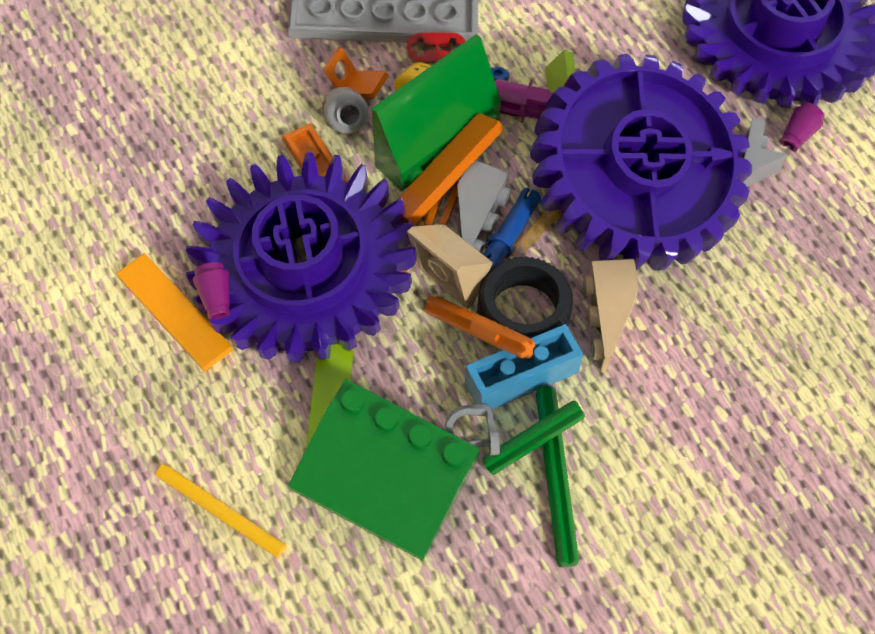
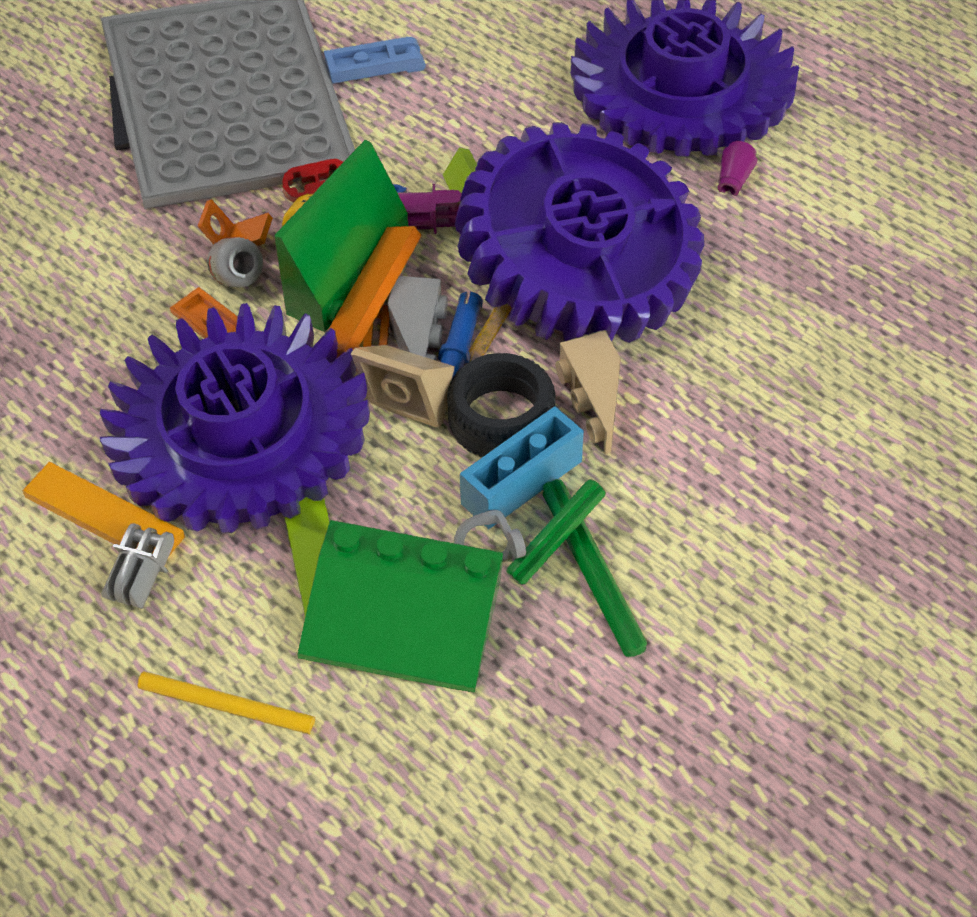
camera: 15 degrees left, 10 degrees down
(179, 373) = (137, 568): none -> light grey arm
(213, 289) = (148, 467): magenta cone -> none
(480, 327) = (461, 434): orange axle -> none
(763, 161) = (712, 206): light grey slope -> none

